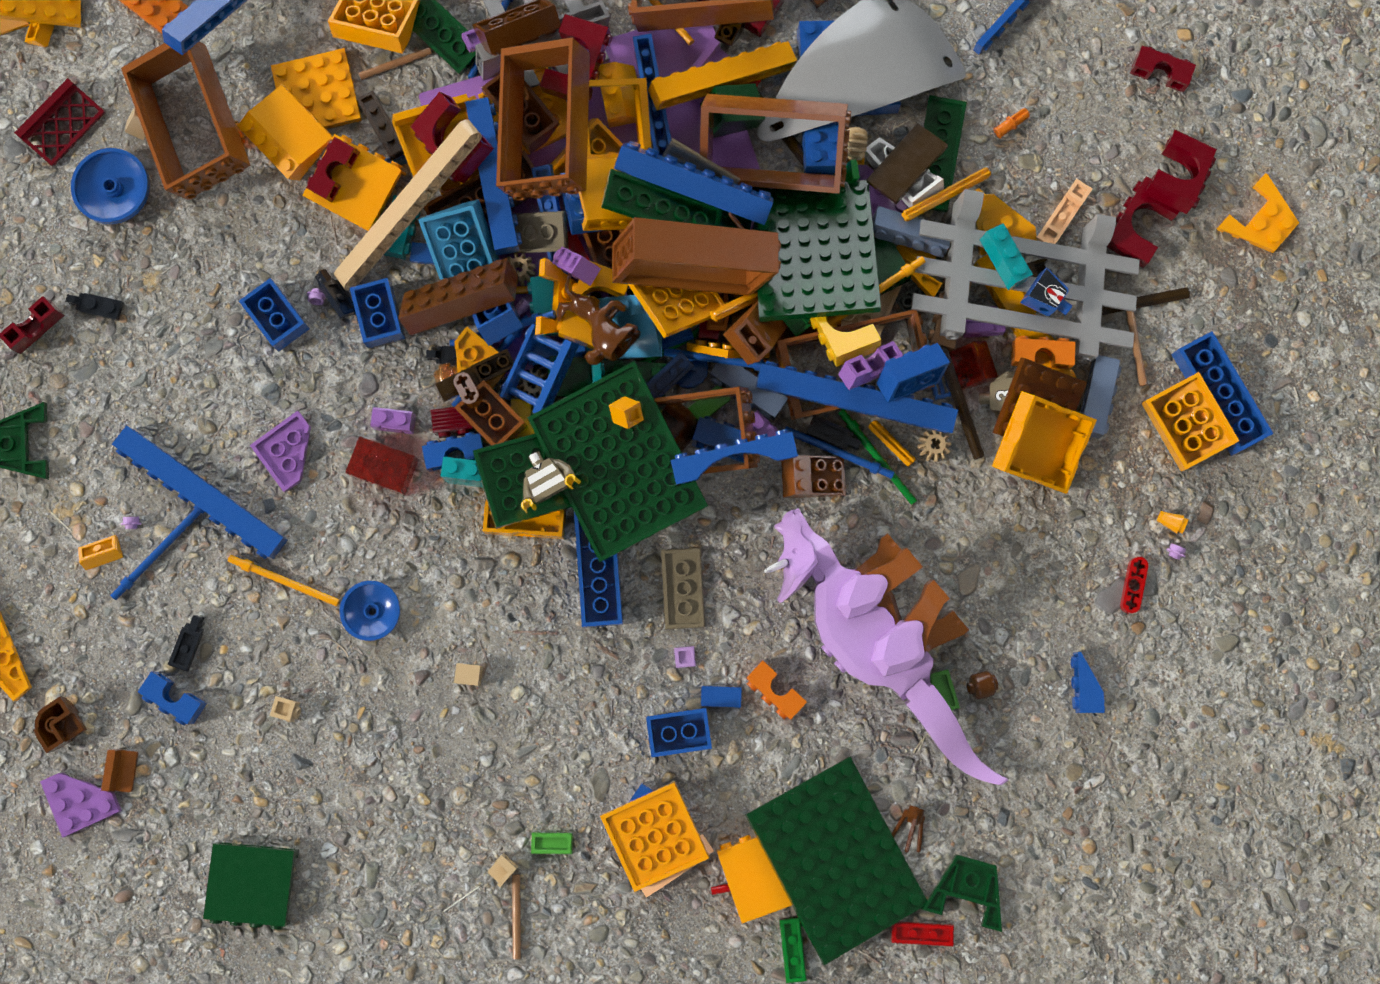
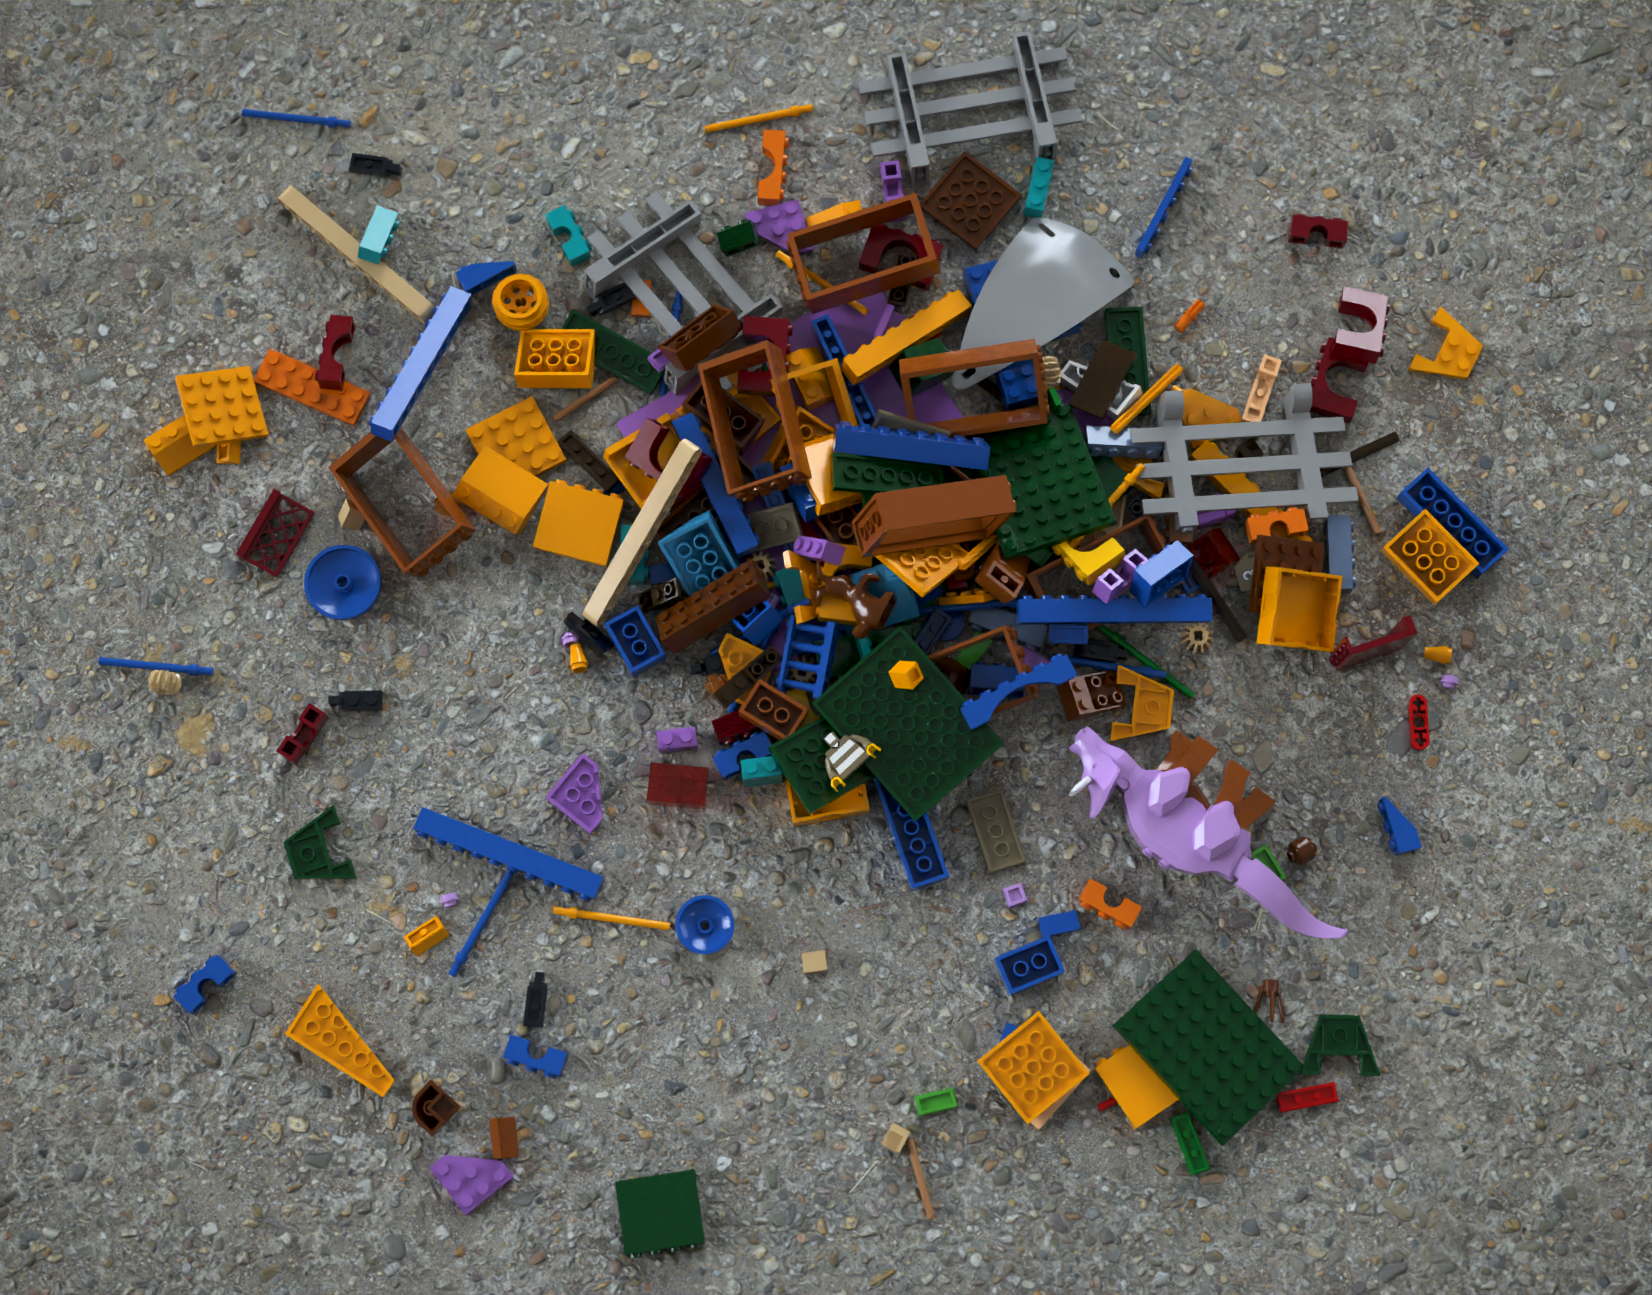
camera: 15 degrees left, 5 degrees down
(274, 314) = (536, 667): blue brick -> none
(285, 709) = (648, 1039): tan bracket -> none
(318, 317) = (578, 661): none -> light orange cone
(337, 154) = (560, 498): dark red arch -> none
(415, 274) = (661, 596): none -> dark brown slope
(464, 392) = (744, 694): reddish brown beam -> none
(804, 410) = (1068, 634): none -> blue tile
(869, 503) = (1150, 705): none -> light orange wing
(891, 443) = (1156, 645): light orange axle -> none
(1005, 256) = (1218, 445): teal brick -> none
(1047, 294) = (1266, 471): torso -> none
(1136, 495) = (1347, 656): none -> dark red panel

